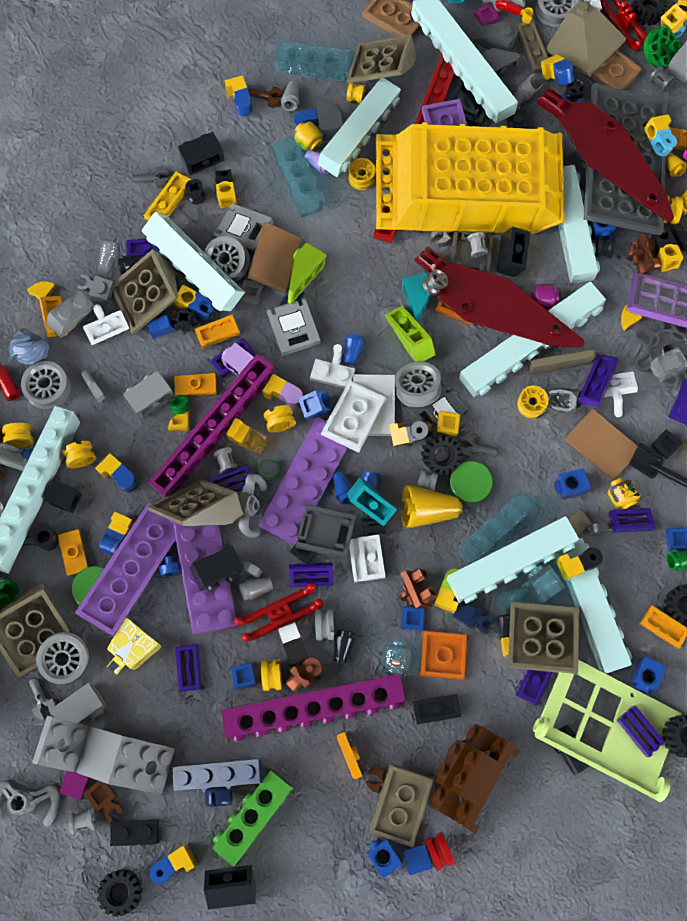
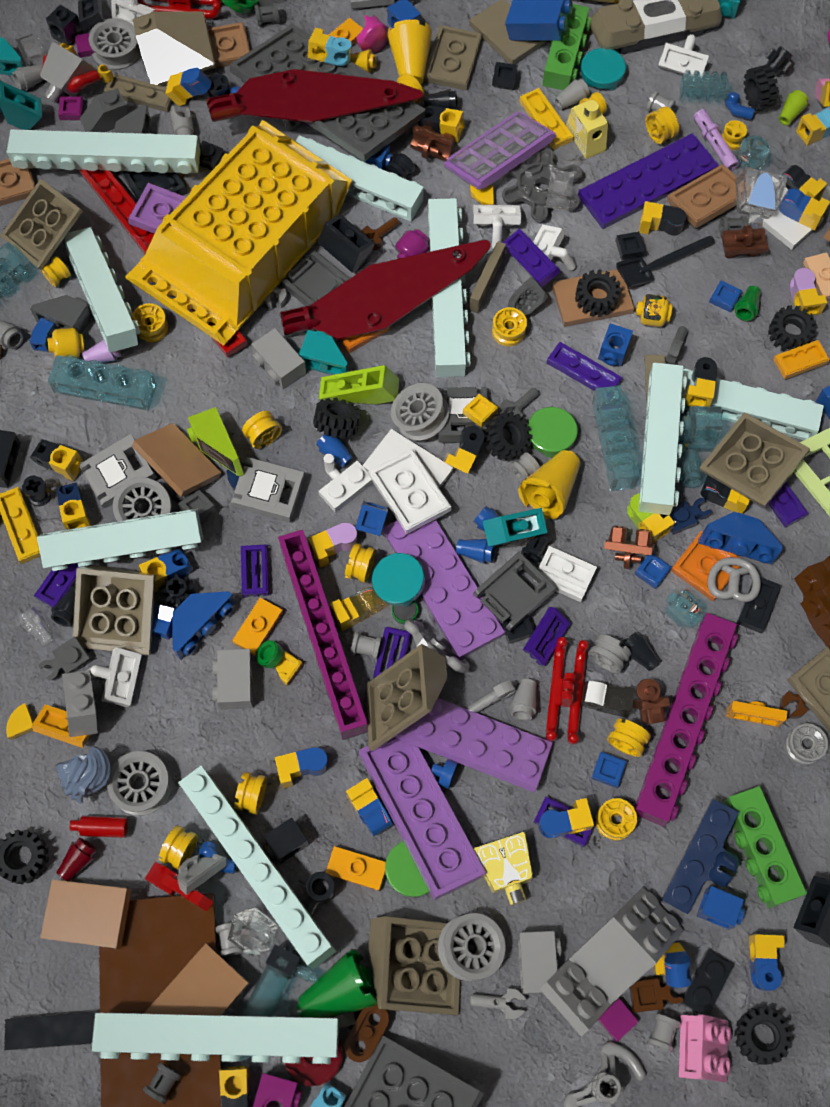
camera: 60 degrees left, 5 degrees down
(87, 856) = (704, 1048): none -> bright pink bracket
(93, 386) = (186, 730): light grey bar -> none
(126, 802) = (675, 967): none -> blue leg
(173, 345) = (197, 619): none -> blue slope
(178, 663) = (558, 824): none -> leg
(190, 812) = (721, 908): none -> blue brick
(198, 220) = (72, 506): none -> yellow leg
(205, 693) = (616, 807): none -> yellow wheel
(216, 569) = (484, 720): black brick -> none
(217, 331) = (214, 566): light orange plate -> none
(236, 358) = (267, 563): lavender brick -> none
(283, 450) = (398, 579): none -> teal tile
(332, 293) = (261, 429): none -> yellow wheel
(345, 814) = (815, 739): none -> light grey wheel
(367, 339) = (336, 418): none -> black tyre
(393, 269) = (278, 359): none -> light grey brick
(435, 282) = (328, 326): flat silver wheel -> none
(442, 679) = (734, 578): none -> light grey piece
(478, 245) = (314, 268): light grey bush -> none
(479, 665) = (742, 537): none -> blue slope
(538, 474) = (582, 368): none -> dark purple tile
(540, 267) = (380, 231): none -> reddish brown bar
(612, 435) = (602, 282): none -> black tyre
(617, 335) = (497, 215): none -> white plate
(632, 522) = (679, 331): dark purple tile -> none

